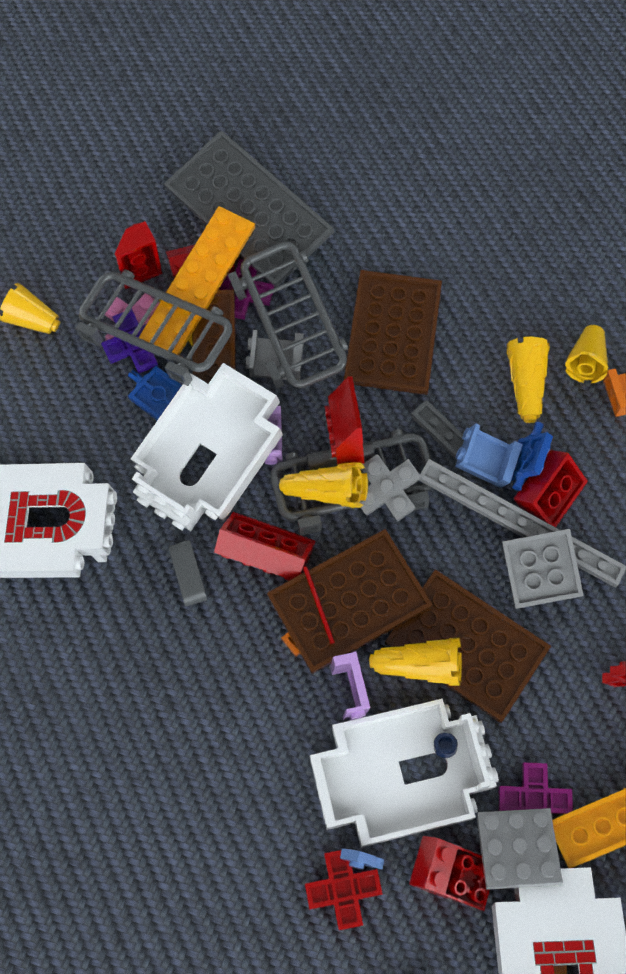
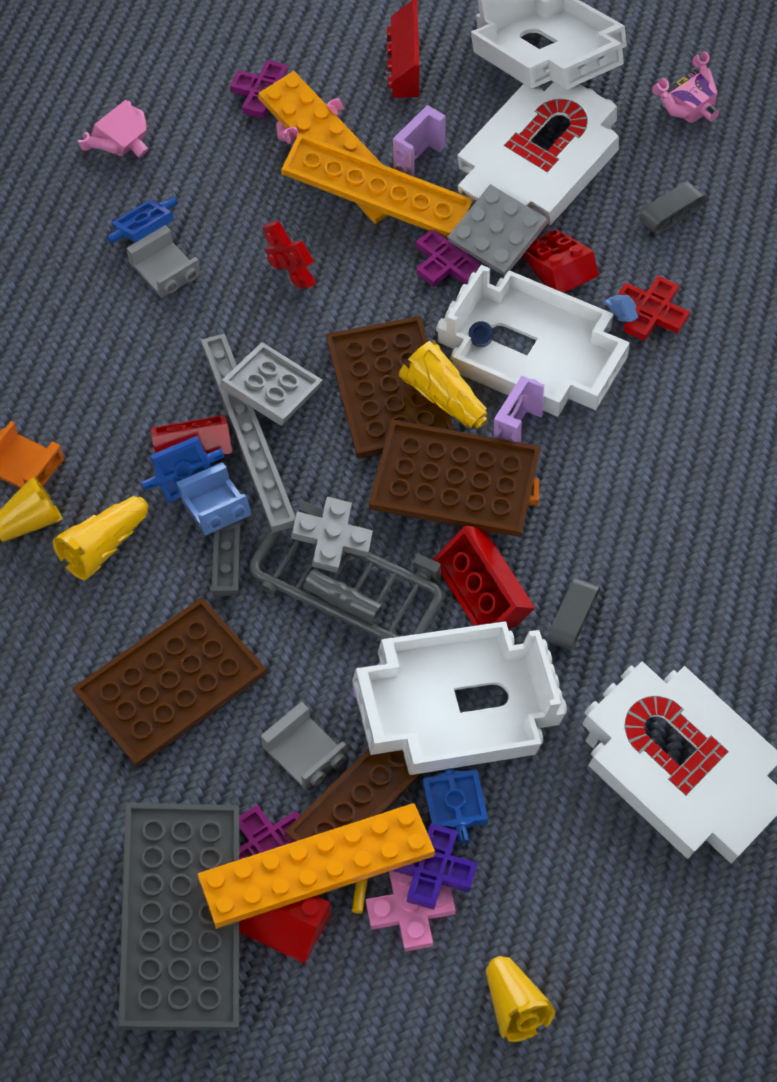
camera: 135 degrees left, 10 degrees down
(138, 253) = (349, 948): red slope -> none
(178, 371) = (473, 896): dark grey bar -> none
(285, 368) = (263, 828): dark grey bar -> none
(318, 604) = (486, 488): red axle -> none
(331, 485) = (379, 559): yellow cone -> none
(345, 424) = (314, 605): red slope -> none

